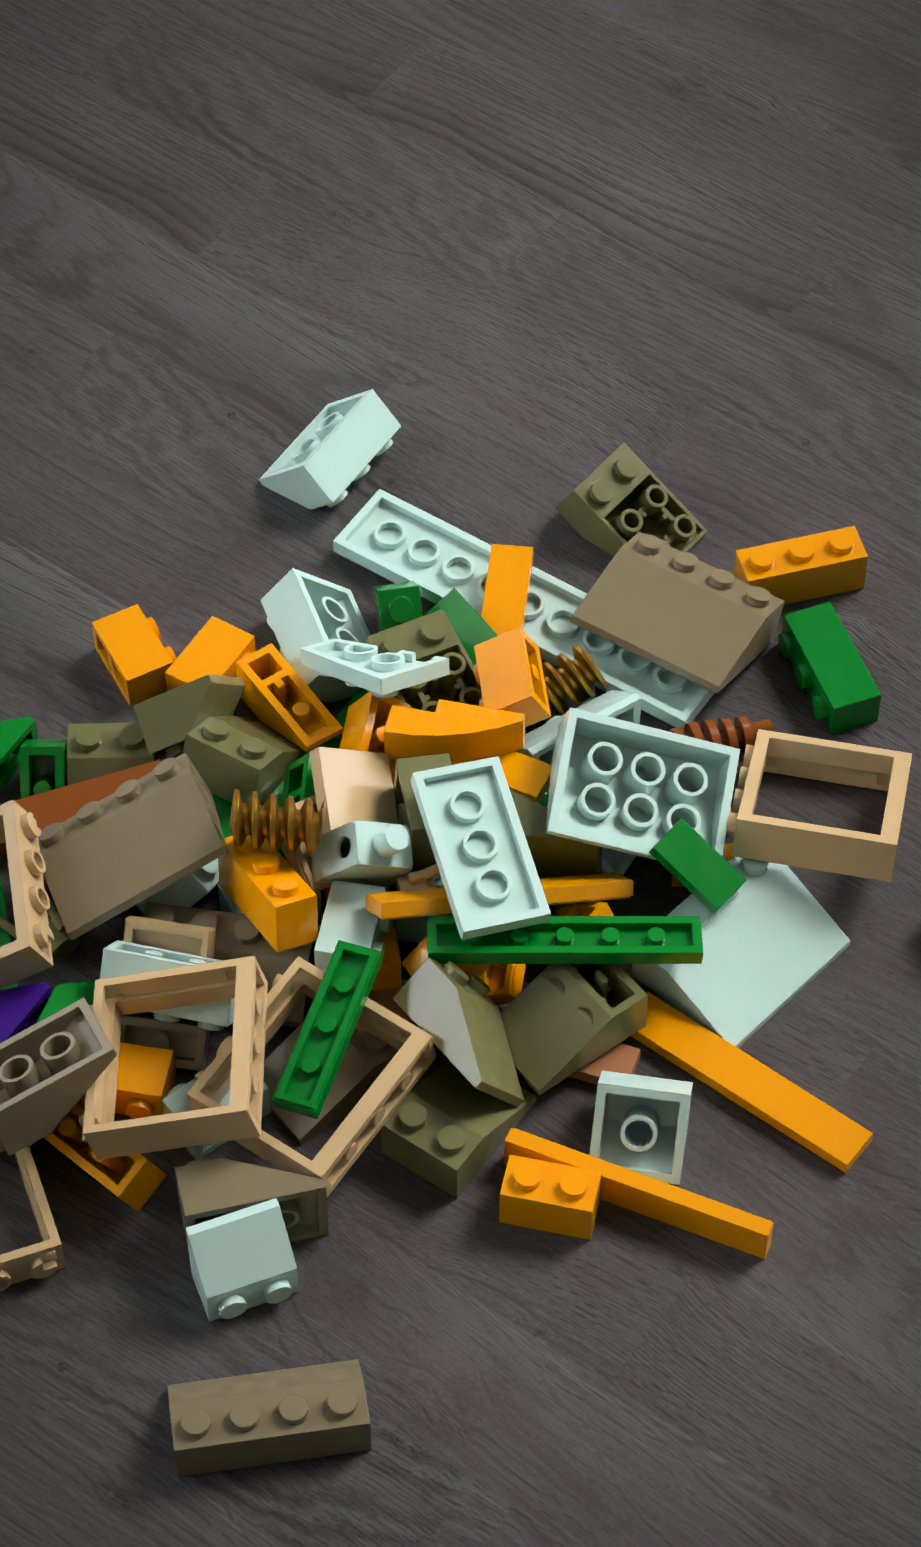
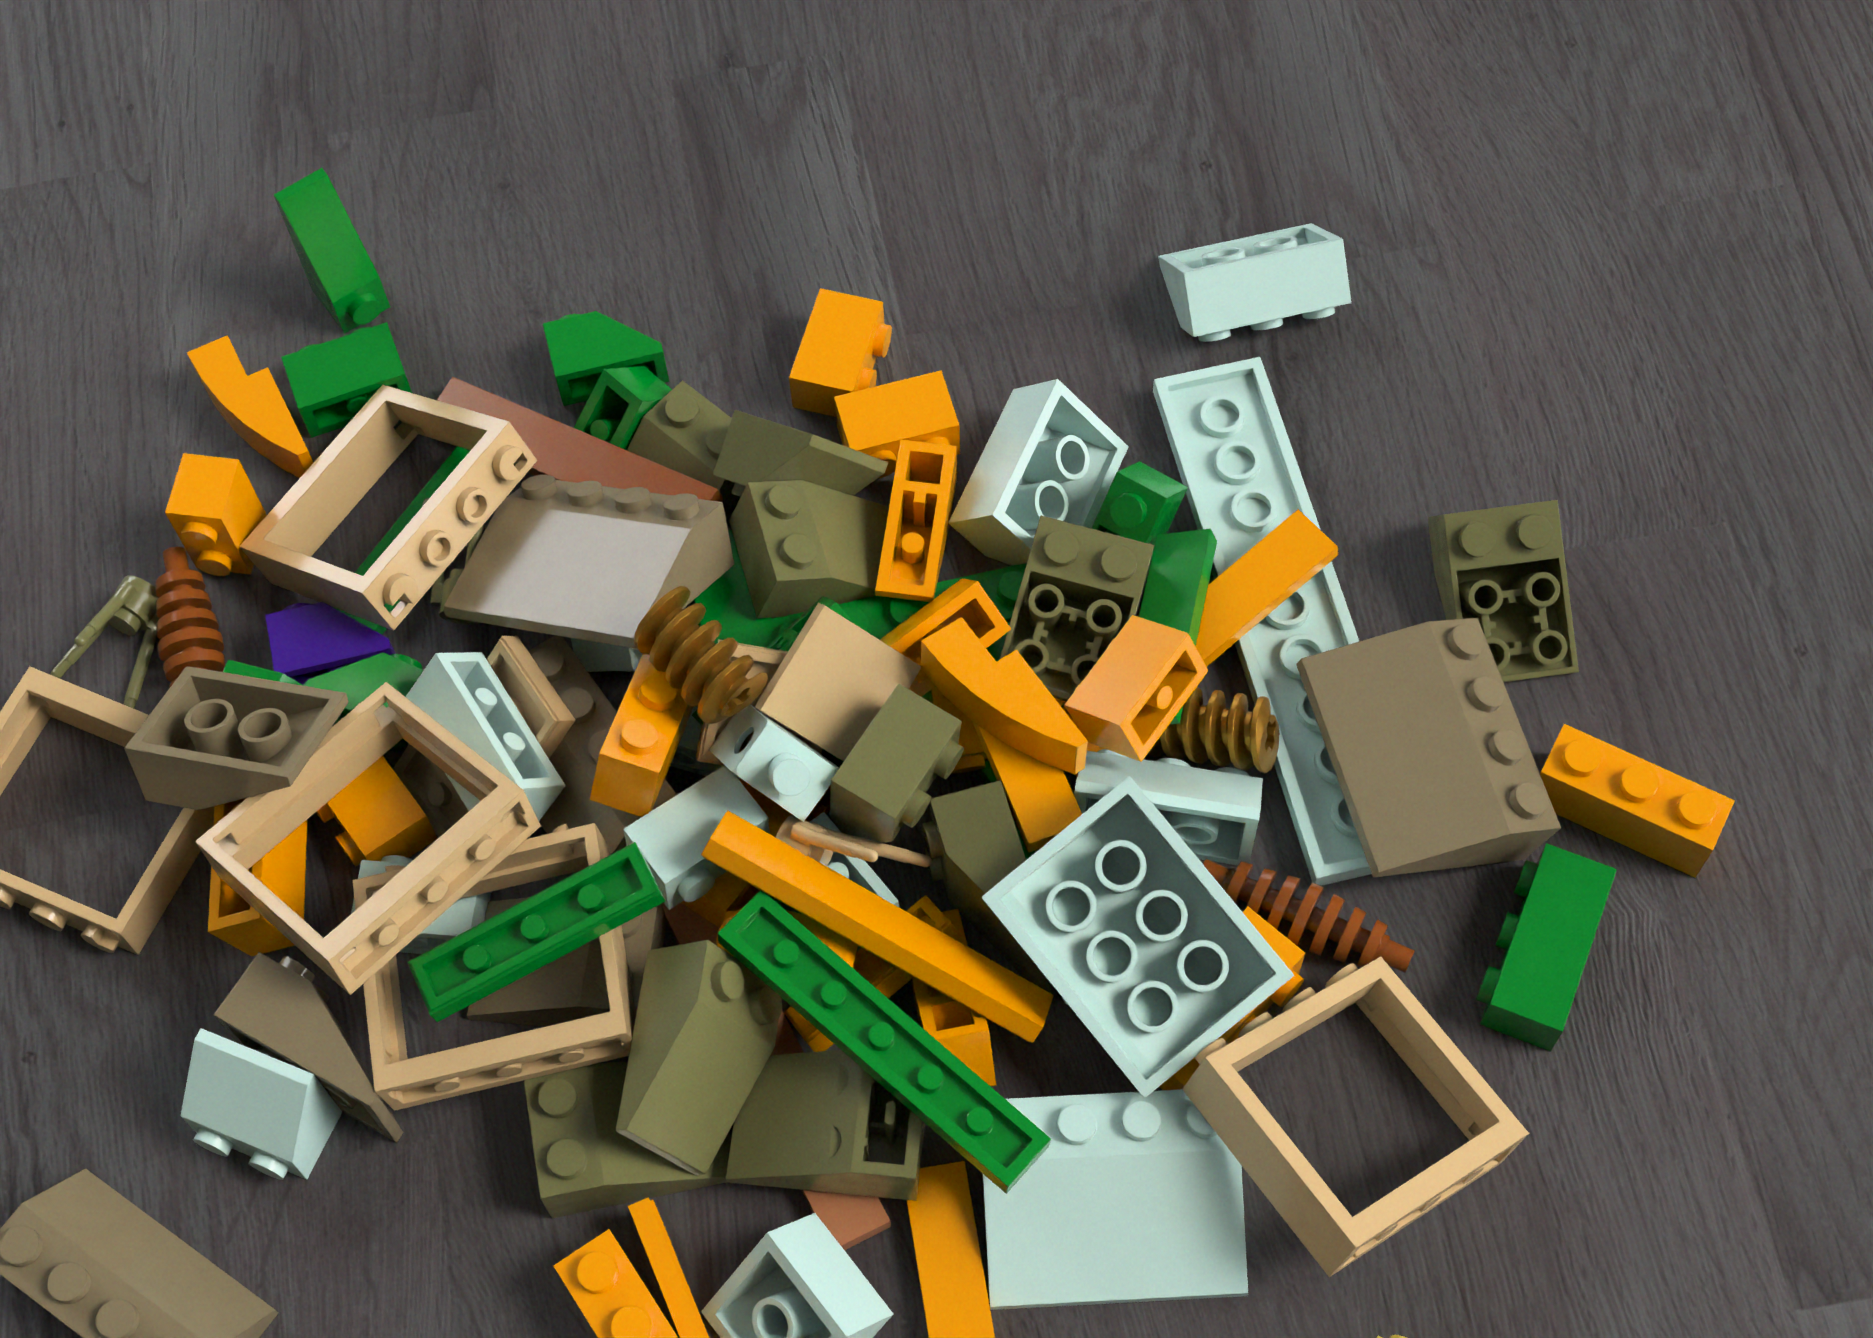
camera: 45 degrees right, 10 degrees up
(365, 668) = (996, 556): light aqua wing -> none
(480, 847) = (872, 861): light aqua plate -> none
(697, 865) = (1118, 1073): green tile -> none

